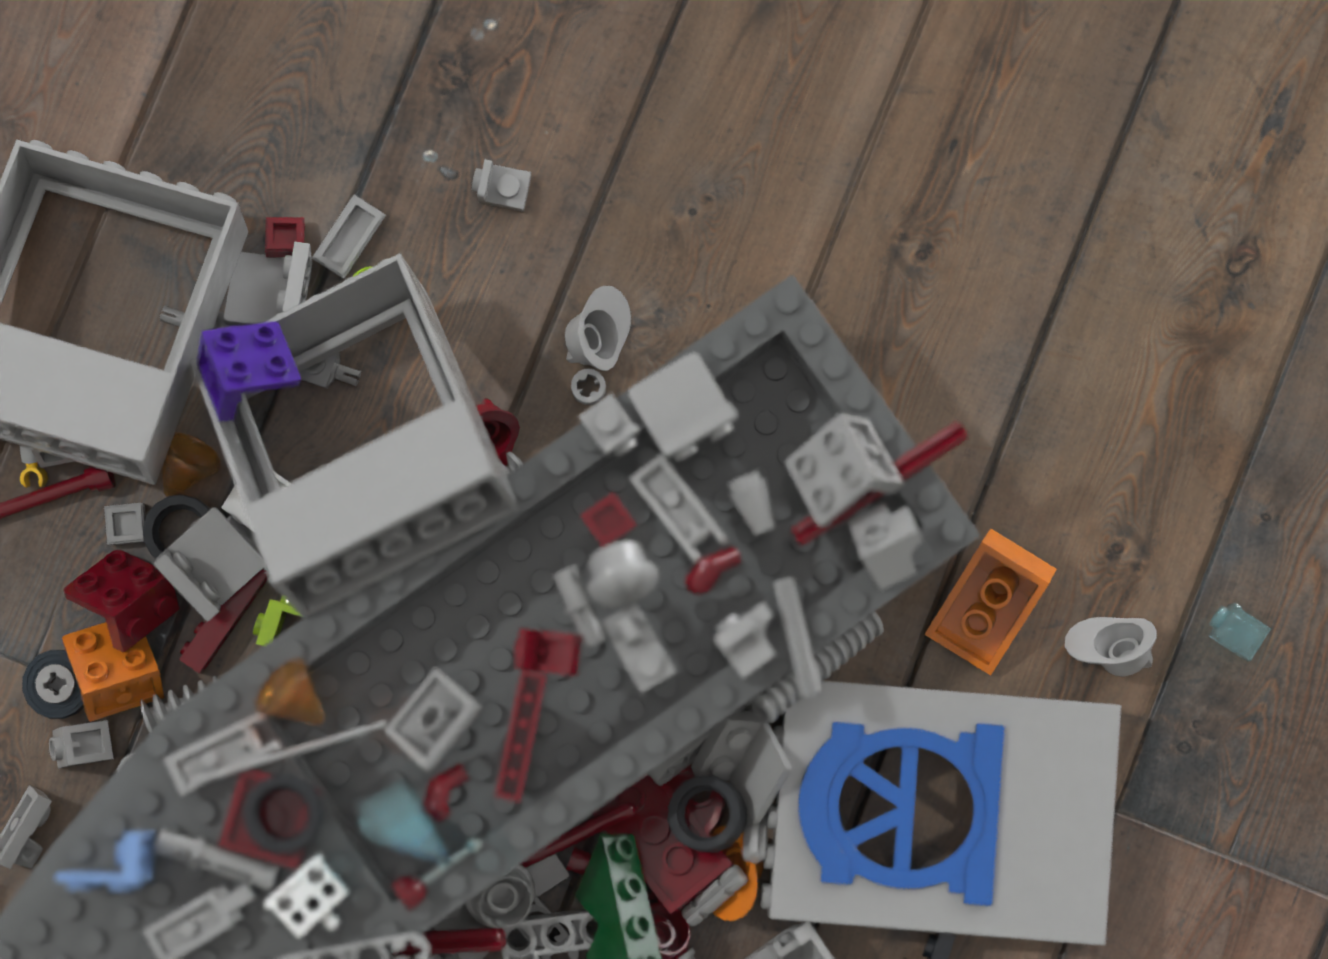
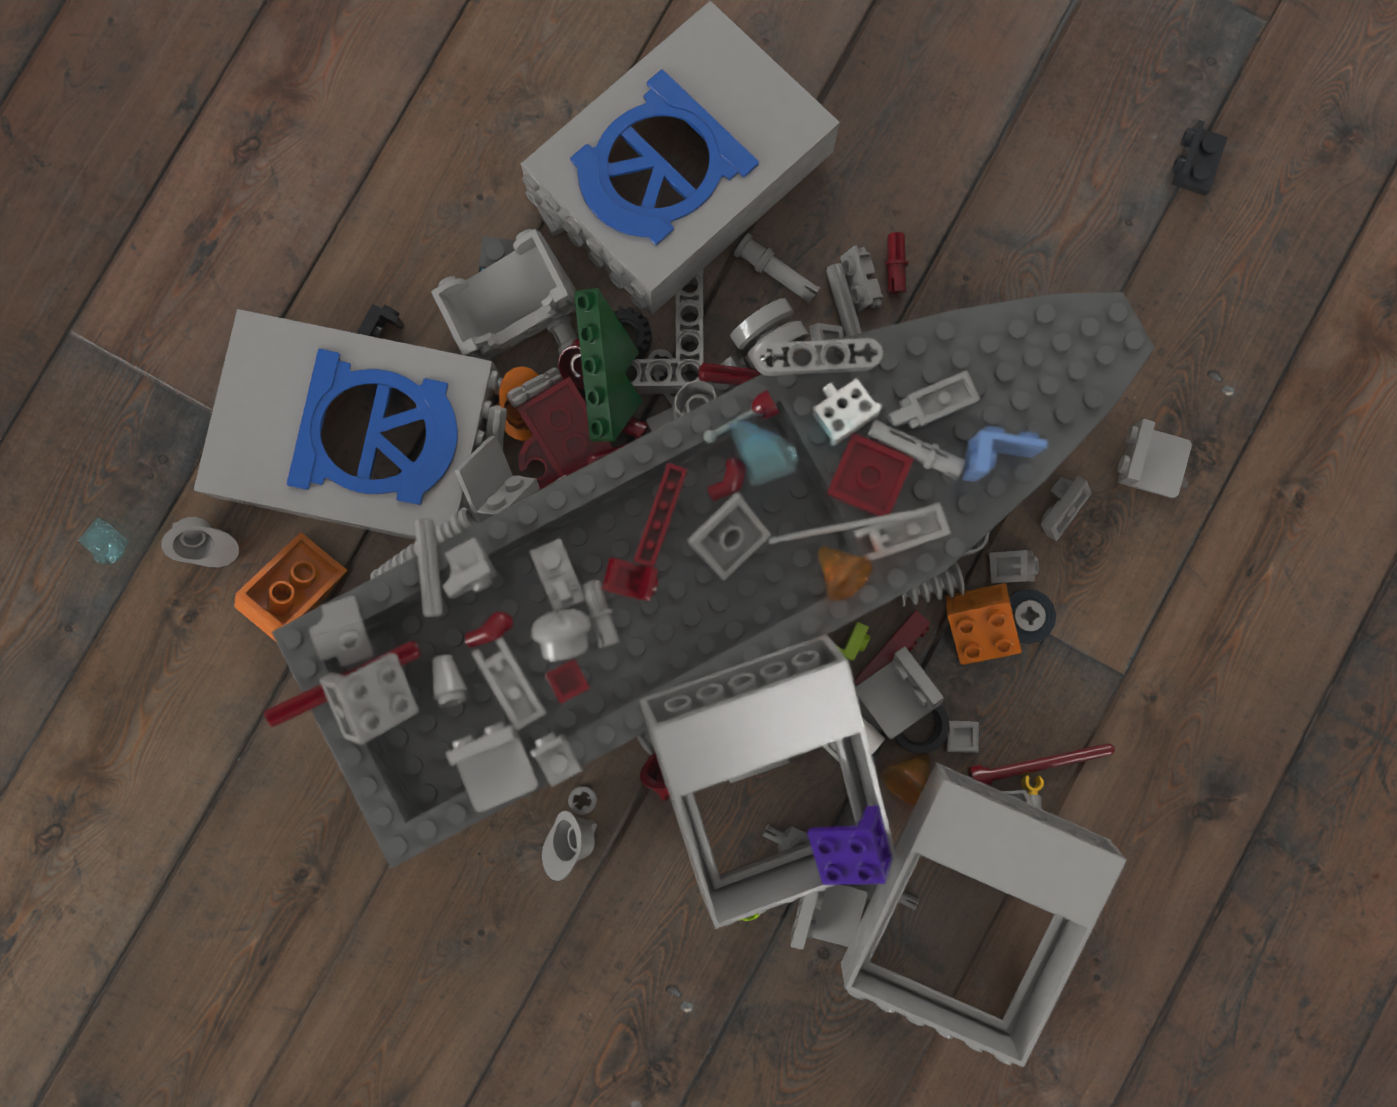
camera: 170 degrees left, 0 degrees up
(127, 594) = (968, 678): dark red bracket -> none
(252, 807) = (869, 452): black tyre -> none
(281, 235) = (813, 956): dark red tile -> none
(348, 236) = (759, 948): light grey tile -> none
(501, 186) = (631, 974): light grey bracket -> none
(677, 808) = (553, 447): black tyre -> none

